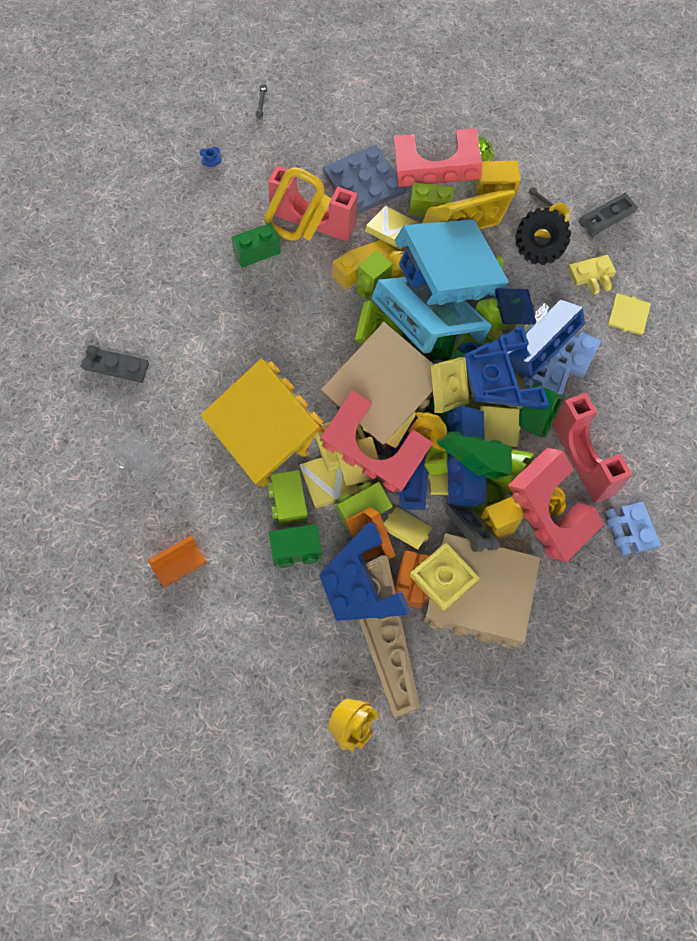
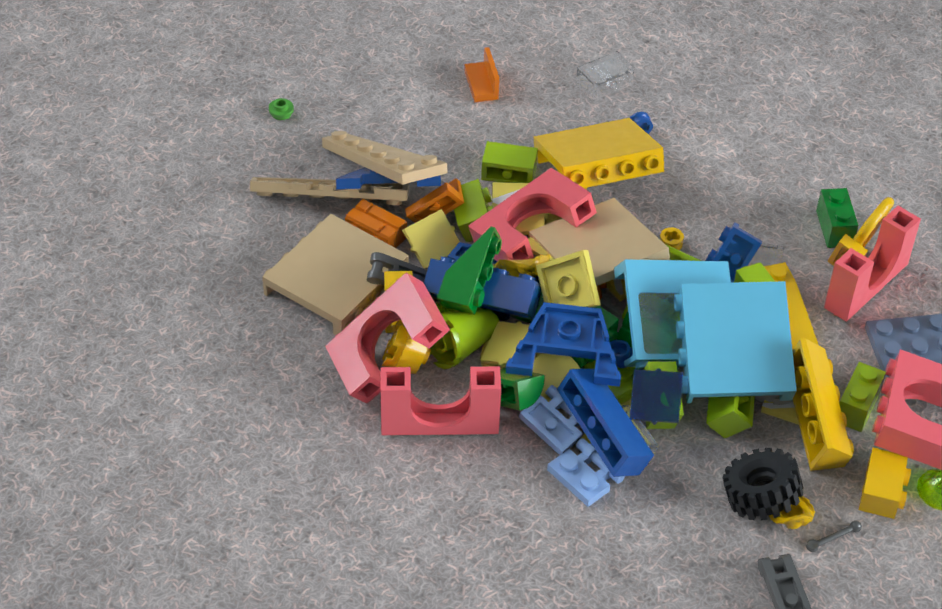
camera: 115 degrees right, 20 degrees down
(115, 364) = (720, 86): dark grey plate -> none
(193, 410) = (642, 120): none -> blue bush
(285, 744) = (281, 108): none -> bright green plate
(295, 545) = (458, 151): green brick -> none
(322, 348) = (672, 233): none -> yellow bush
(335, 301) = (736, 247): none -> blue bracket
(352, 723) = (263, 138): yellow cone -> none
(356, 580) = (384, 159): none -> tan wing
(388, 224) = (837, 341): light yellow tile -> none
(444, 577) = (361, 235): light yellow tile -> none
(591, 271) = (700, 541): light yellow hinge -> none
(629, 314) = (619, 557): light yellow piece -> none
(638, 525) = (333, 441): light blue plate -> none

